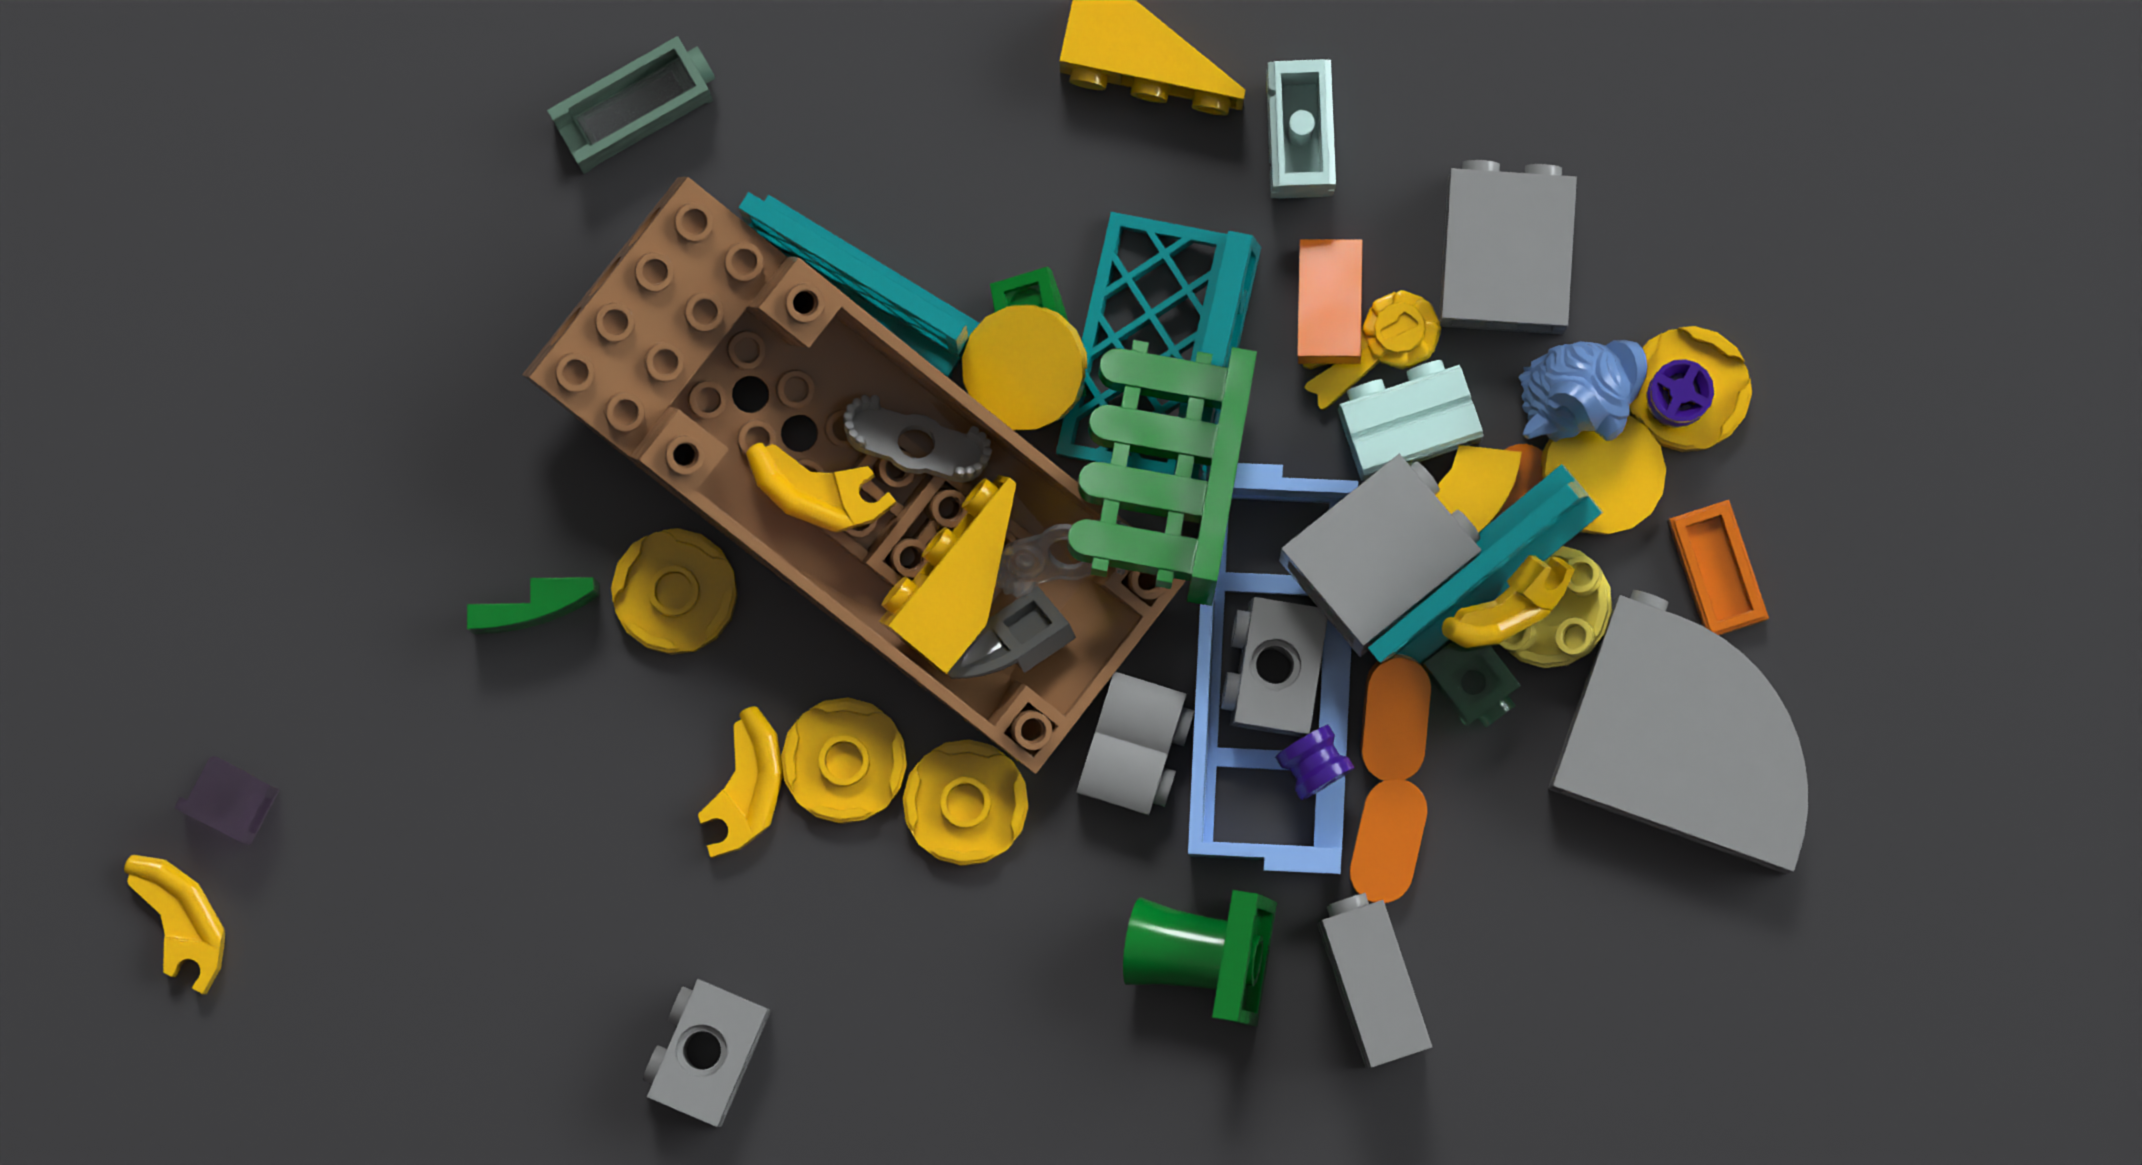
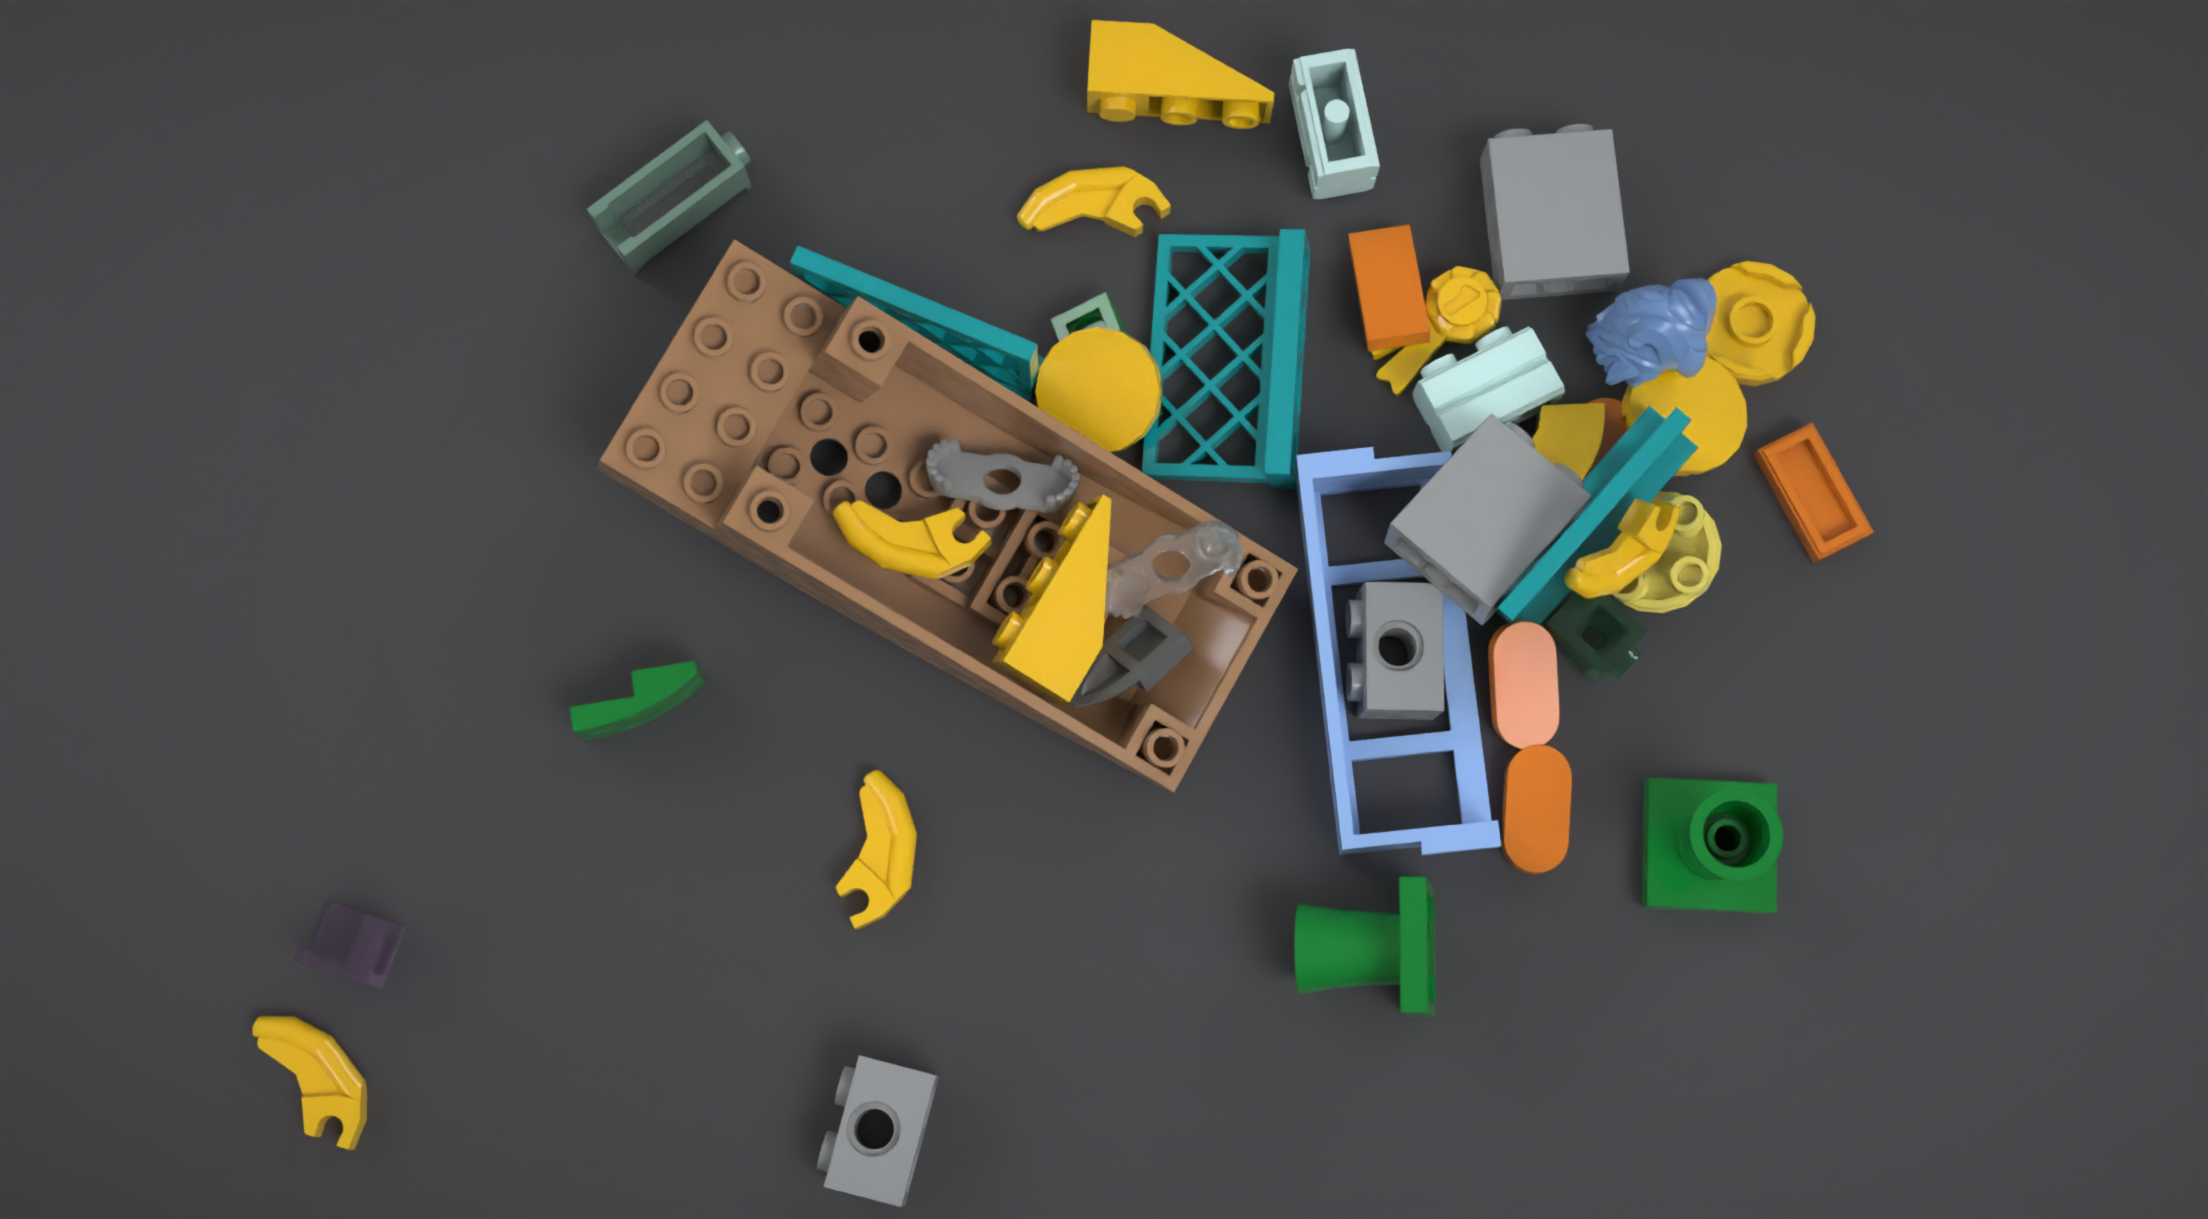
camera: 15 degrees left, 5 degrees down
(674, 591) = (780, 667): yellow tile -> none
(844, 760) = (976, 811): yellow tile -> none
(965, 802) = (1105, 835): yellow tile -> none
(1054, 159) = (1094, 193): none -> yellow piece
(1134, 743) = (1267, 749): light grey brick -> none
(1162, 494) = (1271, 488): green fence -> none
(1314, 762) = (1453, 739): dark purple wheel -> none
(1373, 981) = (1553, 952): light grey brick -> none
(1515, 912) = (1680, 854): none -> green plant
(1686, 383) = (1758, 311): dark purple wheel -> none
(1686, 738) = (1818, 662): light grey brick -> none

